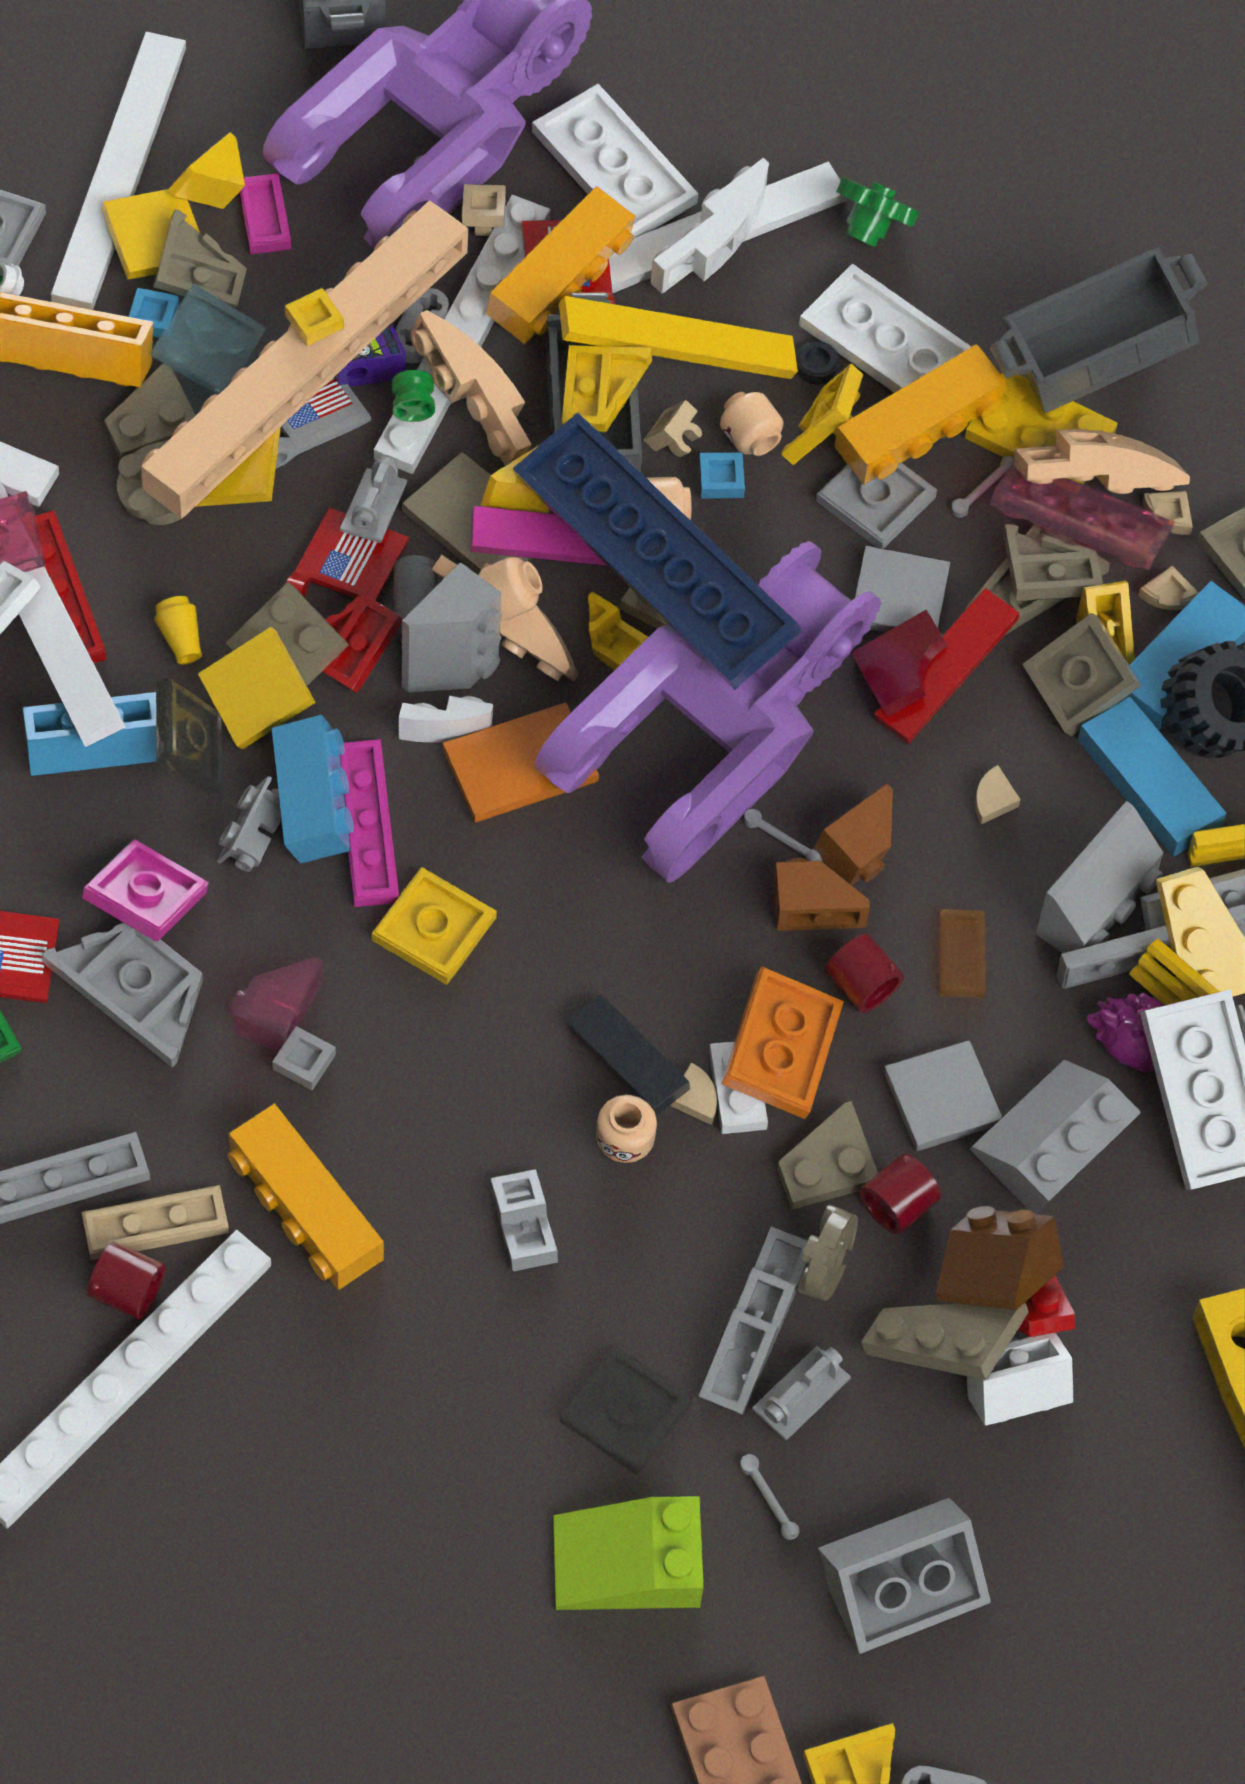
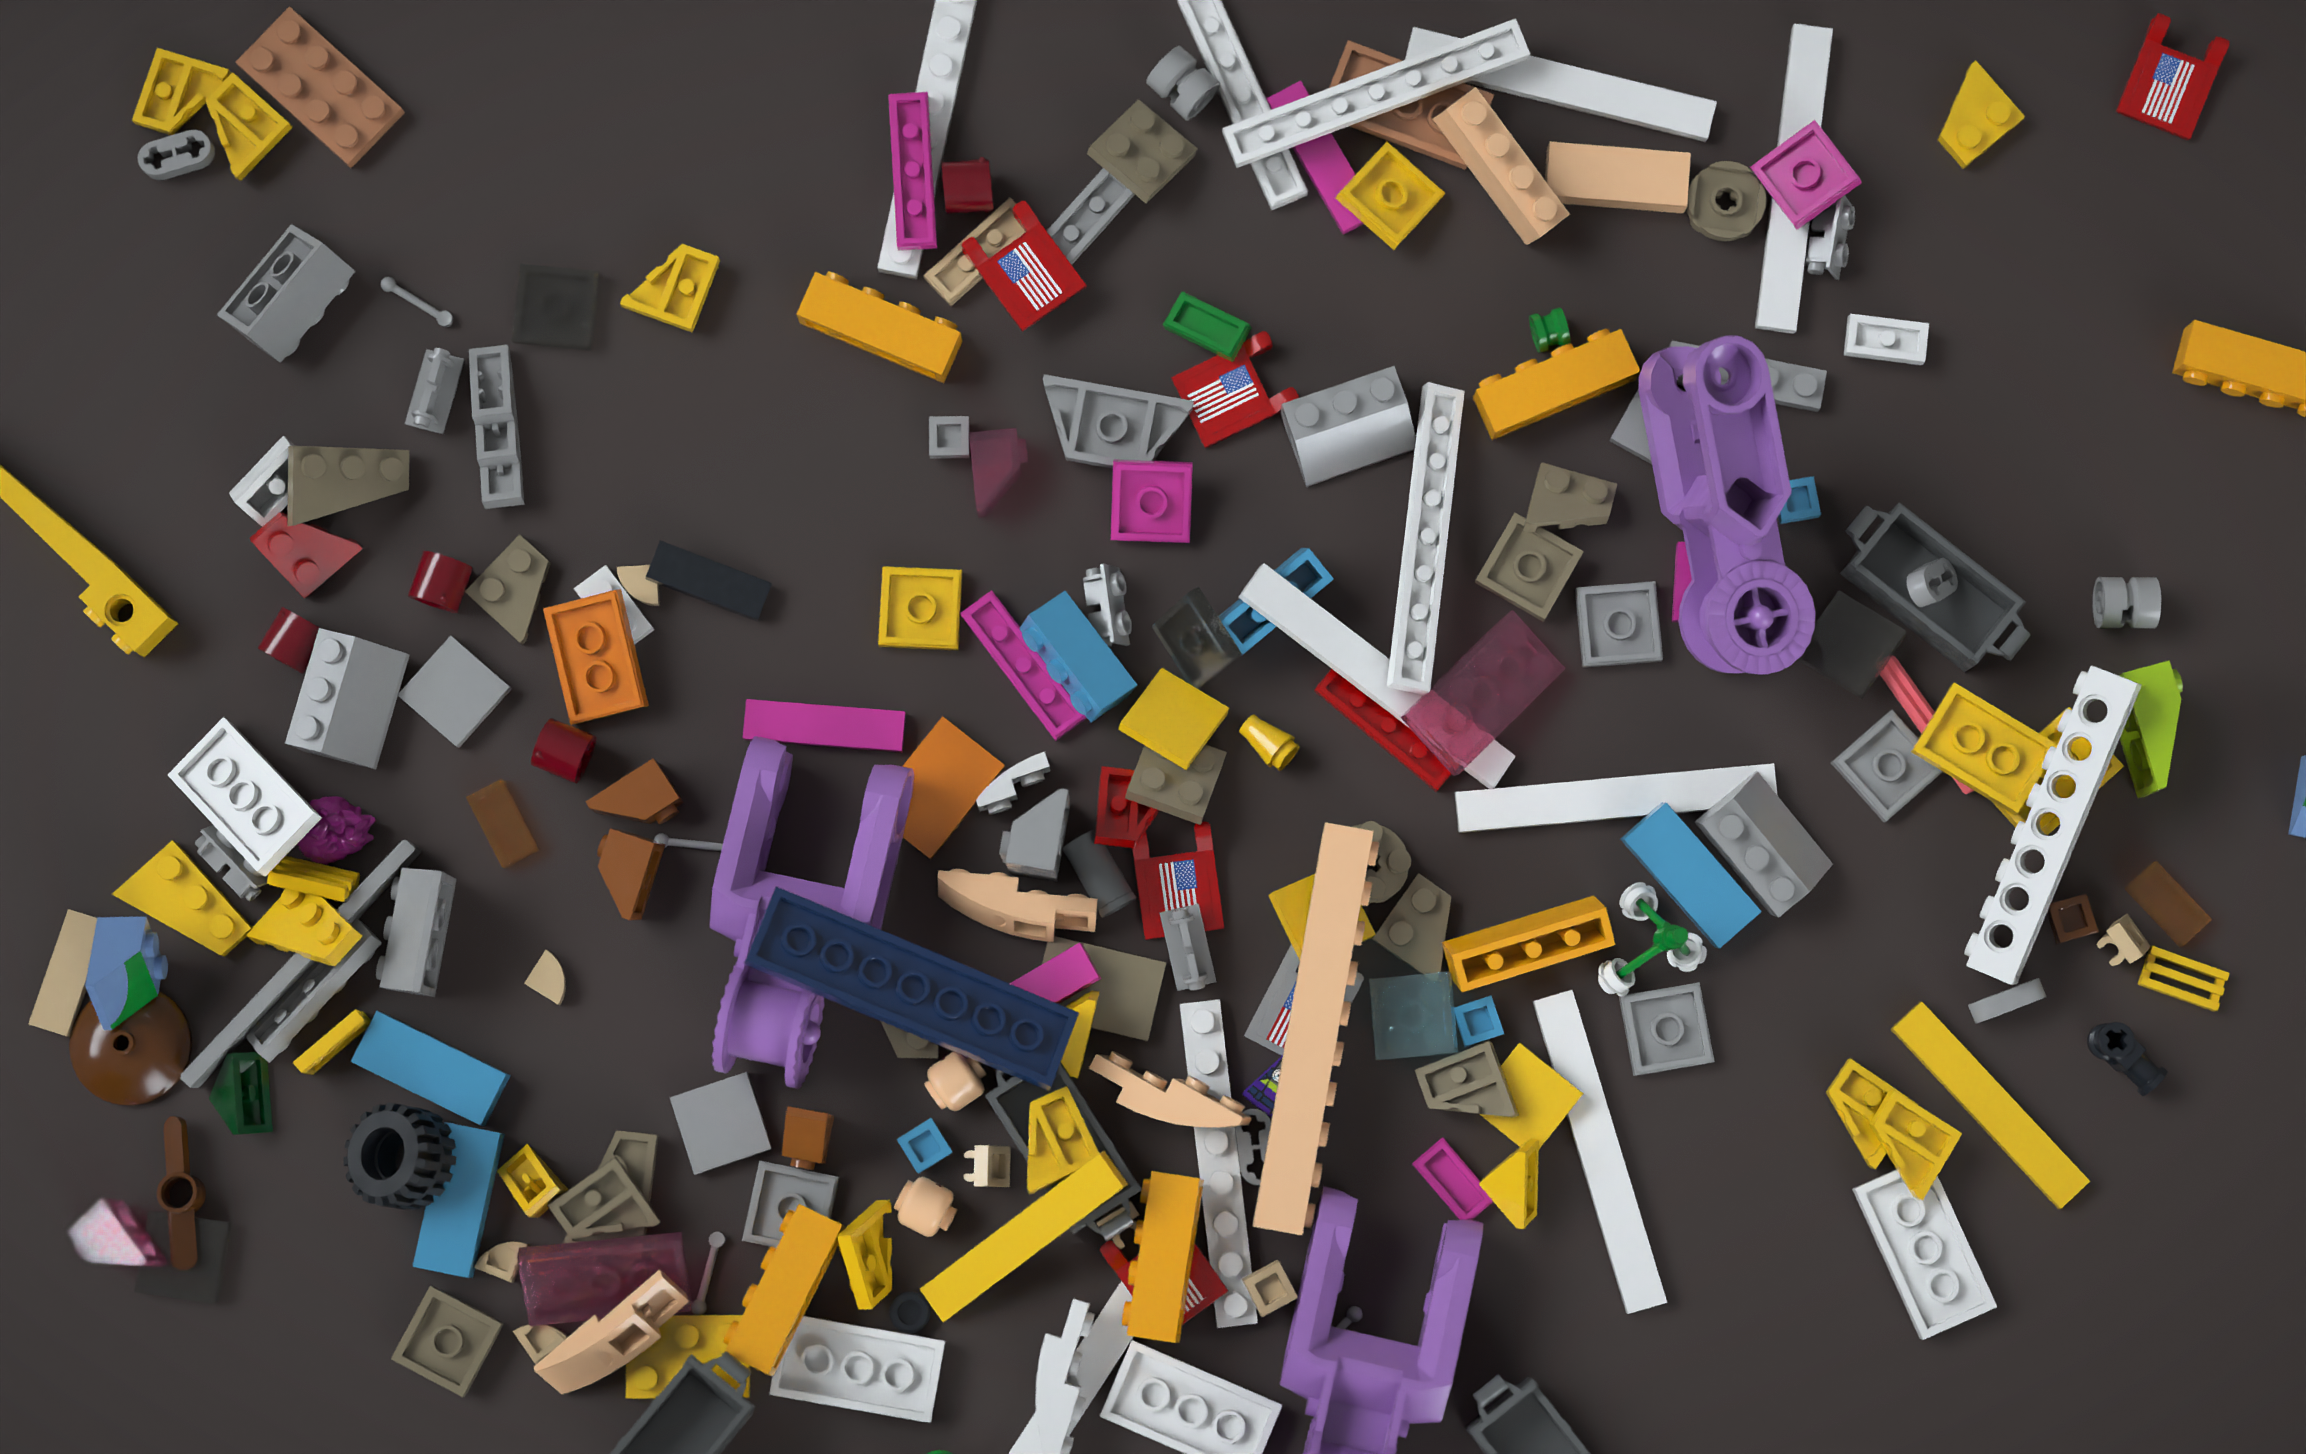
camera: 155 degrees right, 20 degrees up
(122, 1158) = (1029, 273): none -> red flag
(172, 1323) = (912, 171): none -> dark pink tile
(314, 316) = (1319, 1048): yellow plate -> none
(413, 396) = (1209, 1053): green wheel -> none
(491, 1353) = (675, 289): none -> yellow wing
(517, 583) = (1017, 899): light nougat head -> none
(524, 1220) = (712, 408): light grey slope -> none
(594, 871) = (825, 725): none -> dark pink tile
(610, 636) = (927, 935): yellow slope -> none
(626, 1128) = (672, 513): light nougat head -> none
(630, 1555) = (489, 195): lime slope -> none
(827, 1253) = (461, 484): dark tan plate -> none
(828, 526) = (806, 1137): none -> dark orange slope
(898, 660) = (681, 1043): dark red tile -> none
(968, 644) = (643, 1069): red tile -> none
(999, 1258) = (330, 553): reddish brown slope -> none
(1081, 674) = (528, 1120): dark tan plate -> none
(1084, 1218) = (290, 640): none -> dark red piece

